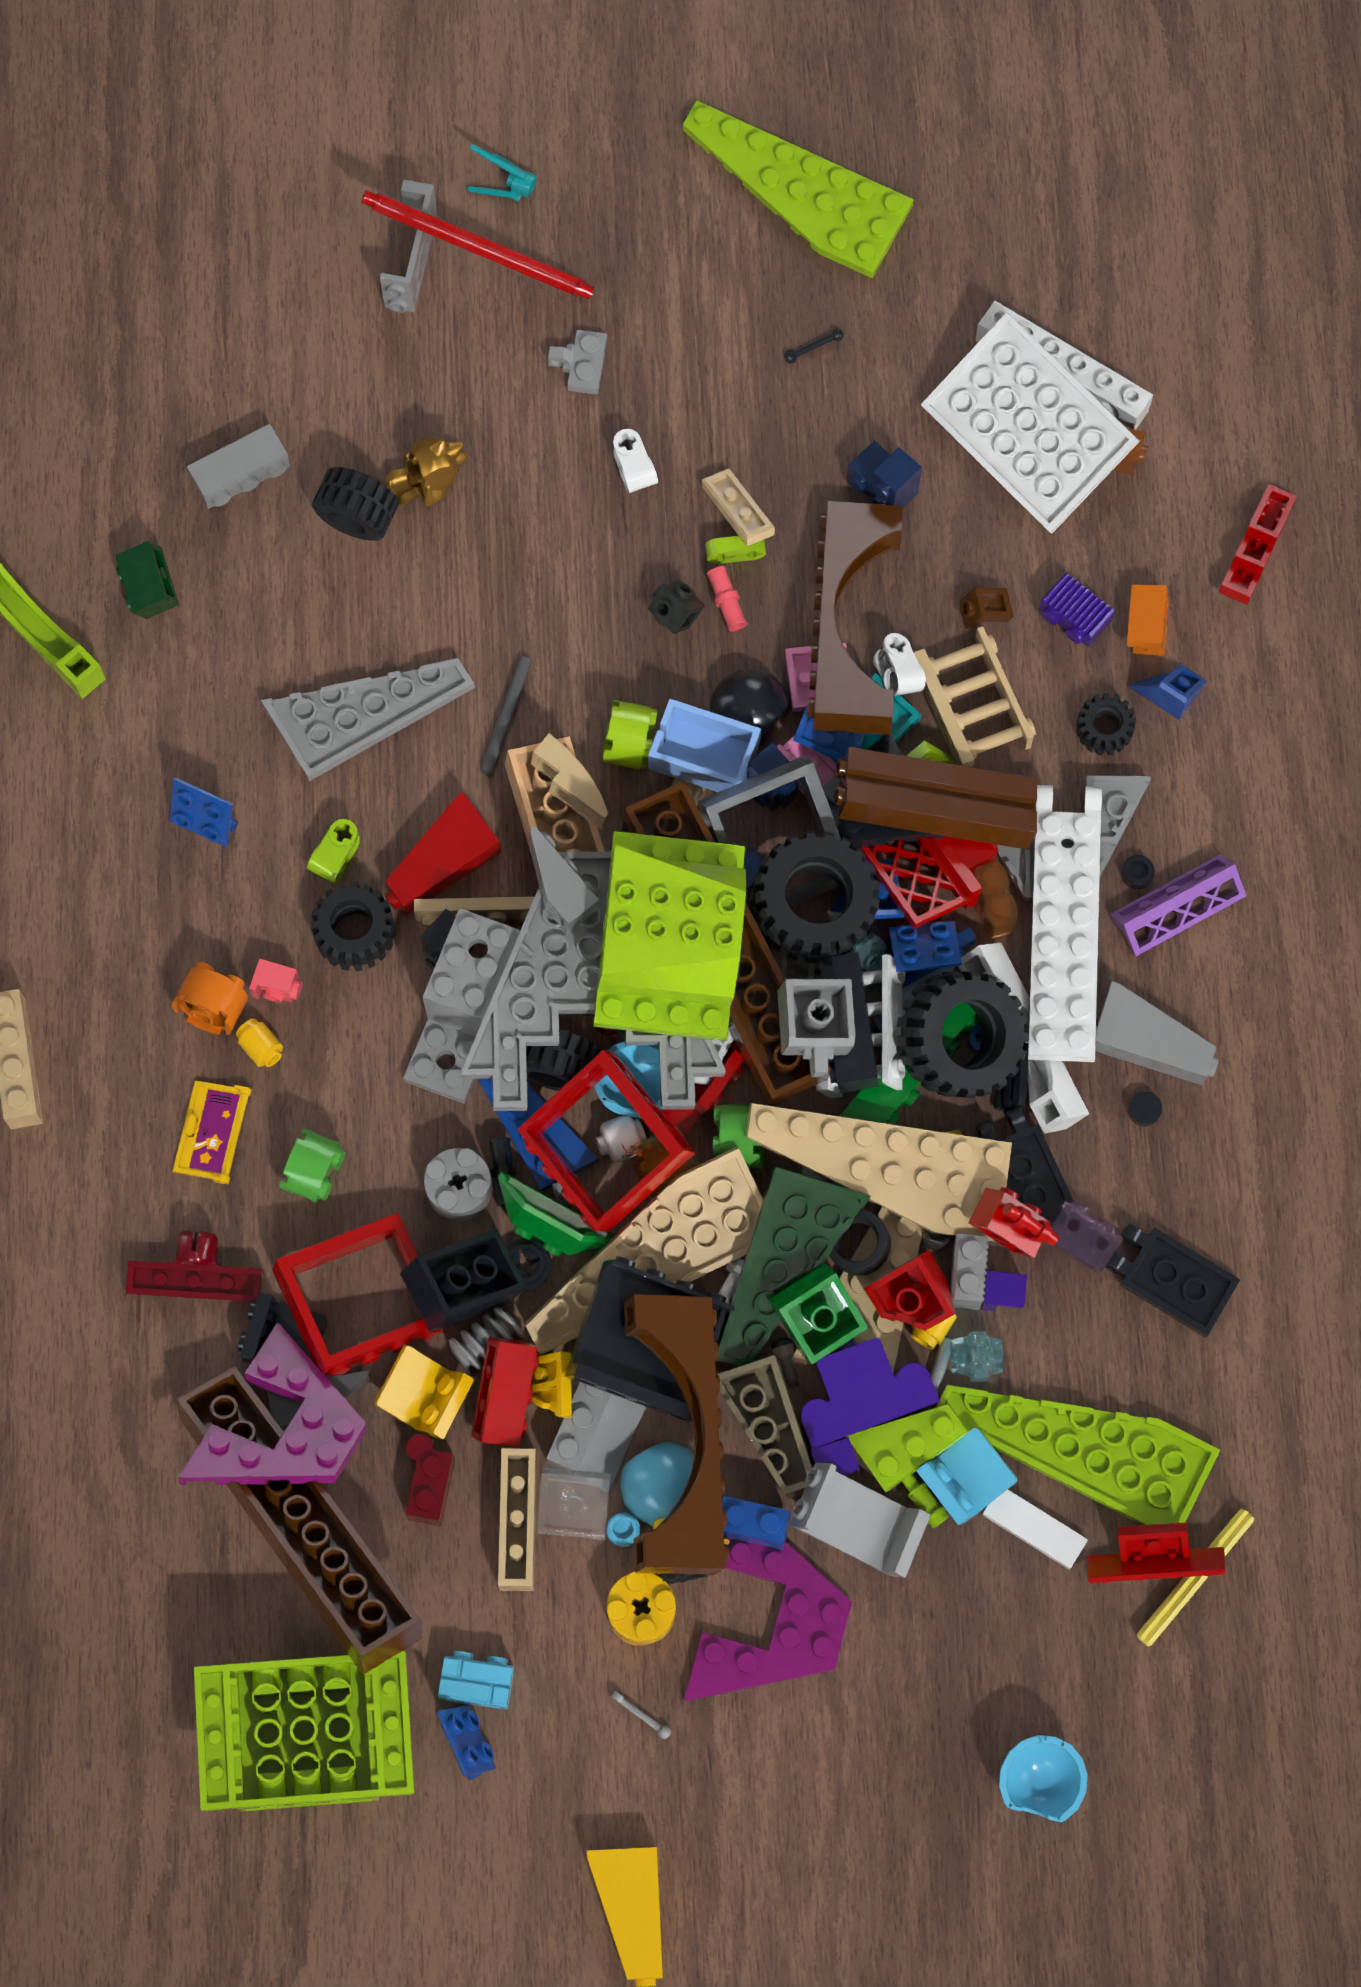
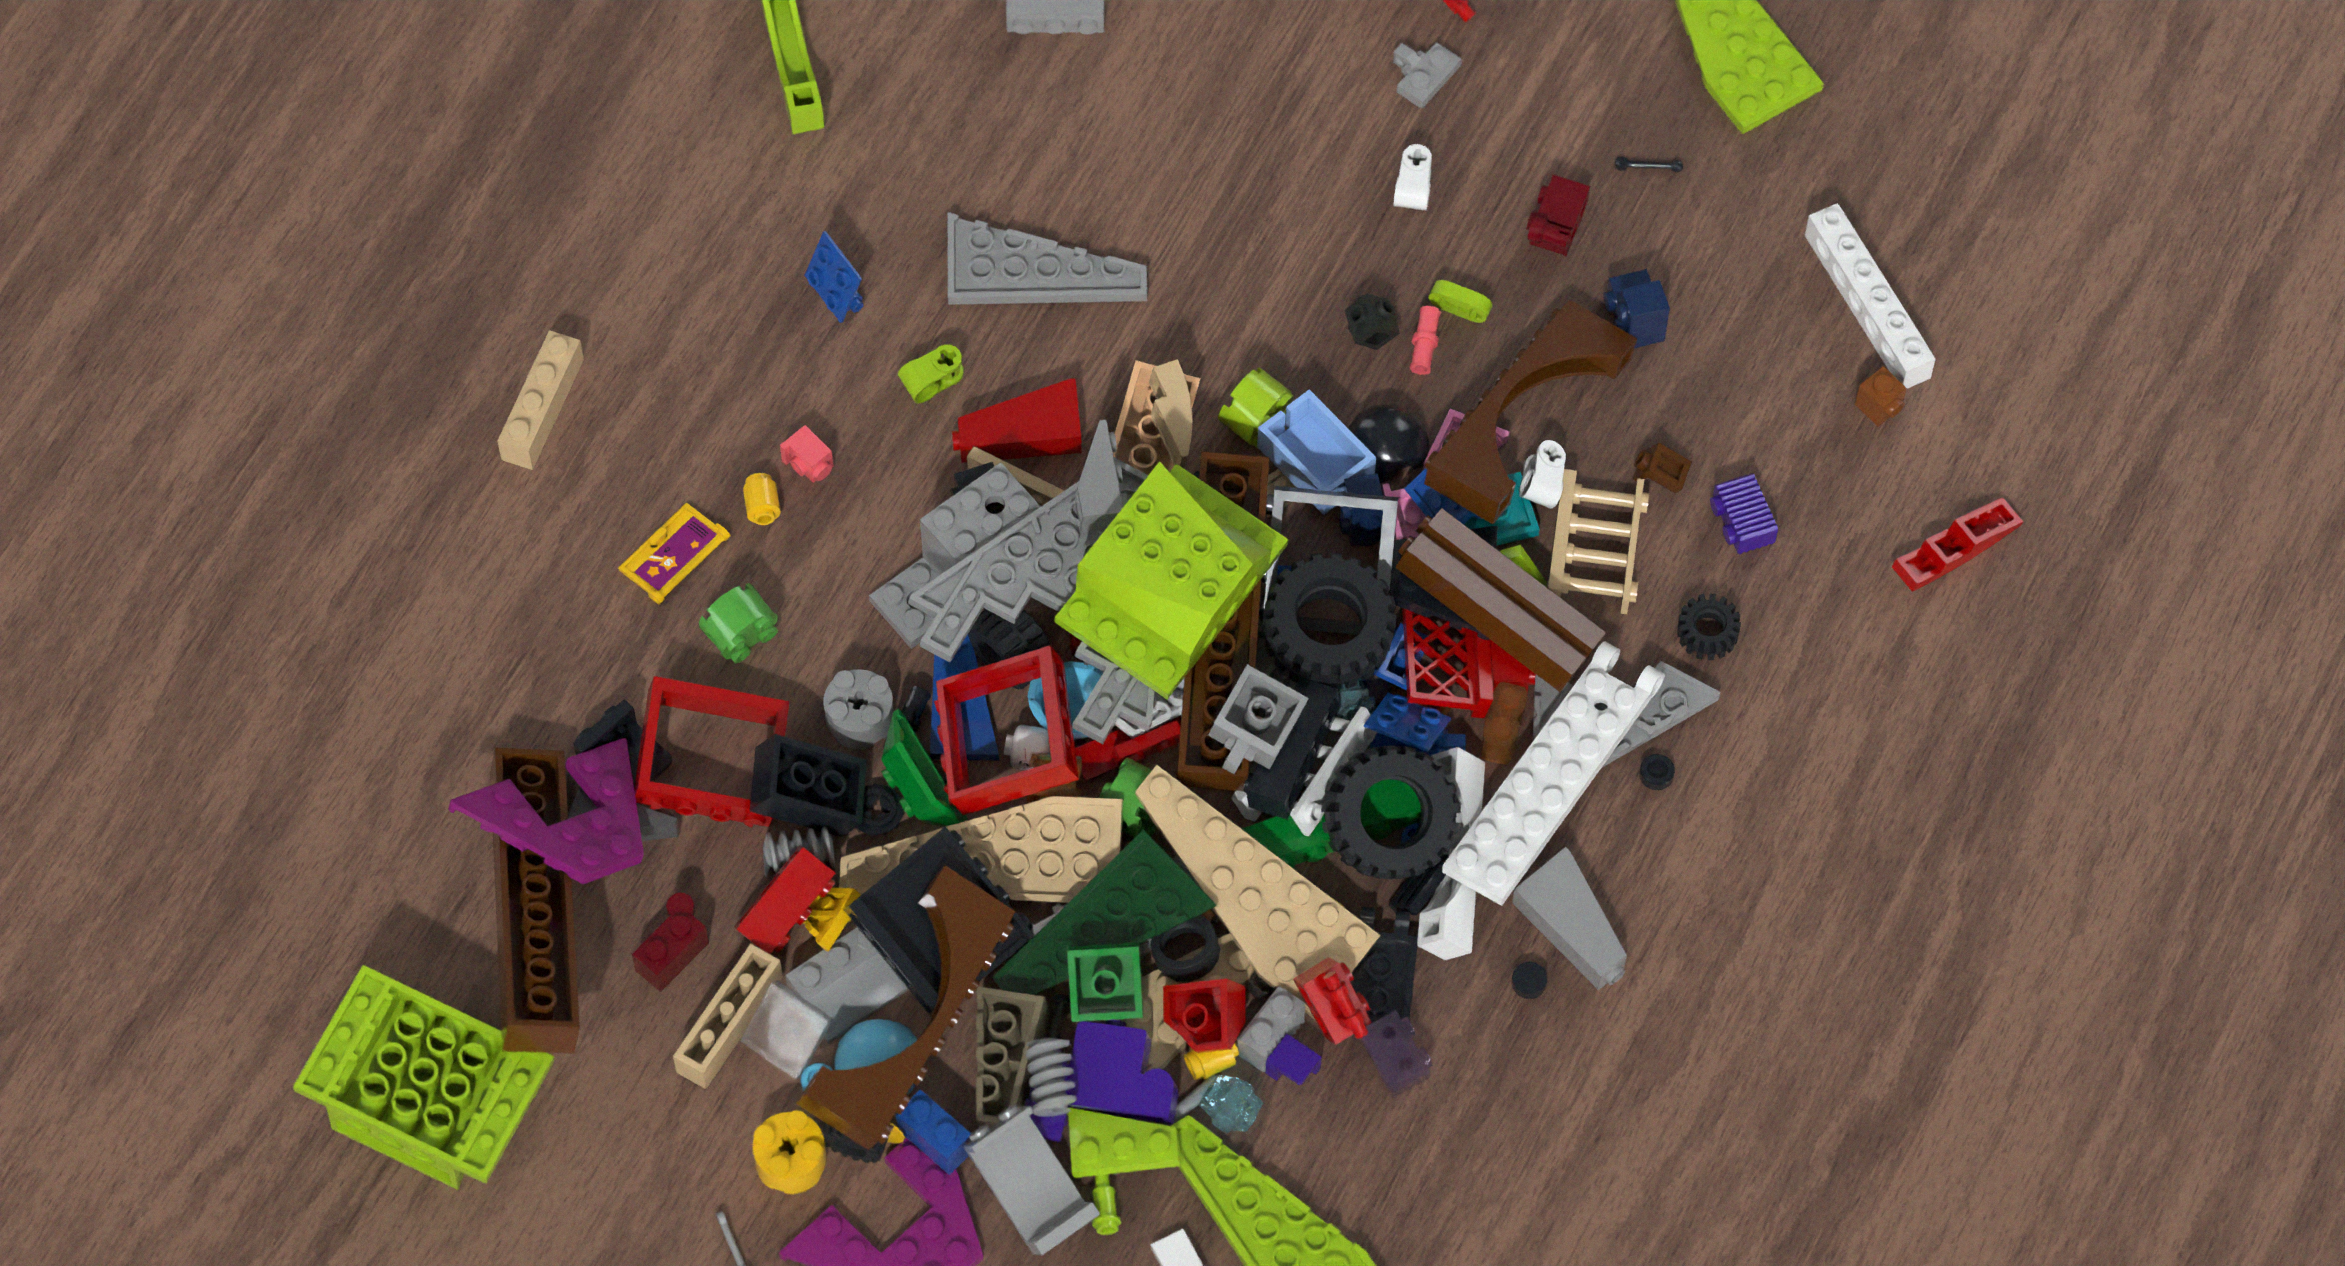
camera: 30 degrees right, 10 degrees down
(146, 580) = (911, 60): dark green brick -> none
(194, 1273) = (579, 659): dark red plate -> none
(210, 999) = (740, 437): orange brick -> none
(346, 902) = (906, 466): black tyre -> none
(355, 503) = (1135, 86): black tyre -> none
(423, 1393) = (712, 863): yellow bracket -> none
(428, 471) = (1221, 95): pearl gold head -> none
(465, 1738) = (563, 1176): blue hinge -> none
(476, 1681) = (605, 1134): medium azure brick -> none
(505, 715) = (1160, 338): dark grey bar -> none
(738, 507) = (1484, 265): tan tile -> none
(770, 429) = (1558, 215): none -> dark red hinge
(825, 1422) = (1049, 1076): none -> light grey piece
(968, 1476) = (1154, 1202): medium azure bracket -> none
(1030, 422) = (1802, 325): white plate -> none
(1148, 619) = (1808, 556): orange hinge -> none
(1171, 690) = (1793, 631): blue slope -> none
(1174, 1279) = (1460, 1140): black tile -> none
(1178, 893) = (1672, 807): medium lavender fence -> none

